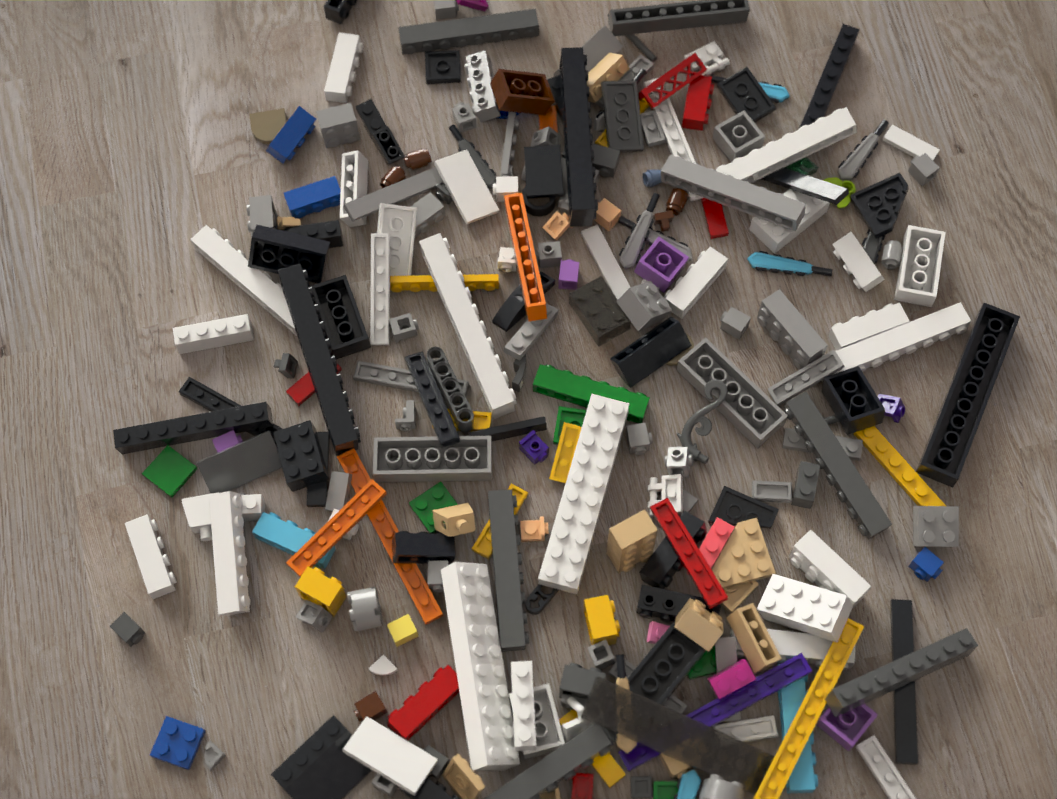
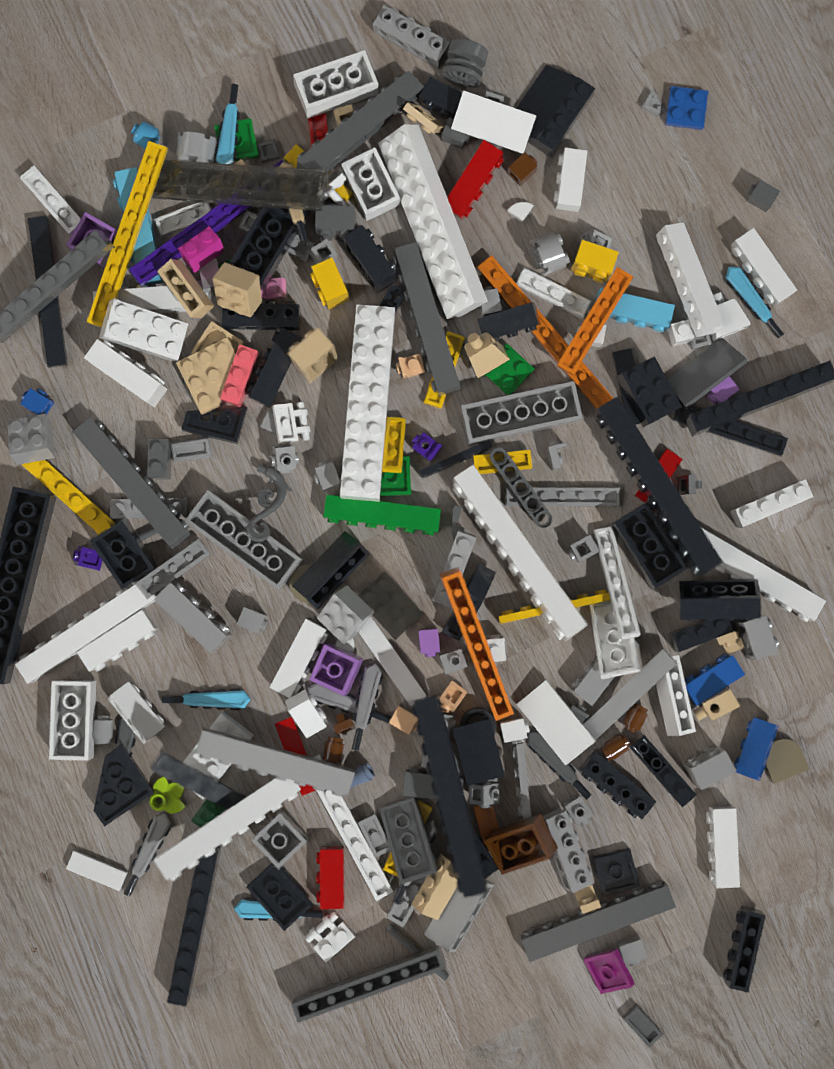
camera: 165 degrees right, 20 degrees up
(169, 471) = (771, 356): green tile -> none
(179, 552) = (746, 291): none -> medium azure sword
(313, 171) = (725, 703): none -> tan torso
(322, 686) = (570, 179): none -> white brick
(338, 490) = (603, 364): light grey tile -> none
(370, 575) = (553, 293): none -> white tile
(402, 630) = (510, 244): light yellow panel -> none
(423, 129) = (617, 784): none -> black brick
(432, 399) = (536, 473): black tile -> none
(473, 43) = (587, 899): none -> tan bracket
(523, 706) = (383, 183): white brick -> none
(552, 638) = (370, 258): none -> black brick
(666, 78) = (364, 901): red fence -> none
(689, 553) = (258, 359): red plate -> none
(696, 231) = (305, 713): none -> white brick
(923, 169) = (80, 840): light grey brick -> none

